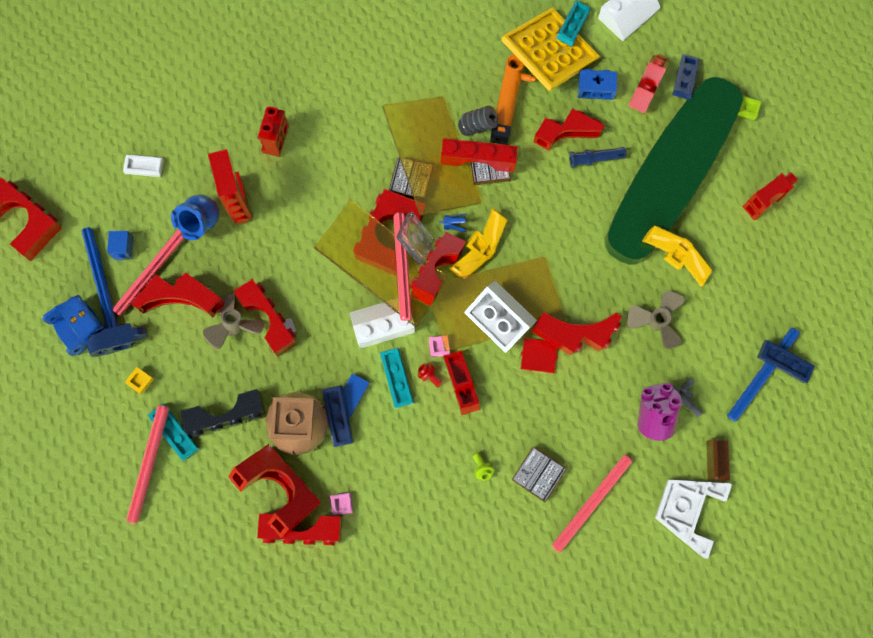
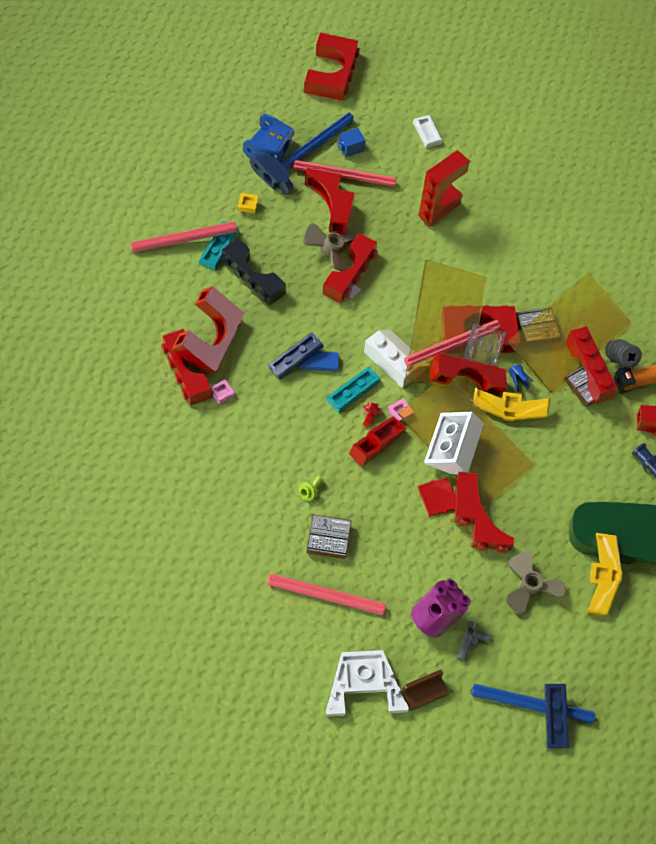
camera: 60 degrees right, 15 degrees down
(195, 216) = (405, 179): blue tile -> none
(273, 131) = (512, 201): red hips -> none
(296, 423) = (272, 324): medium nougat plate -> none

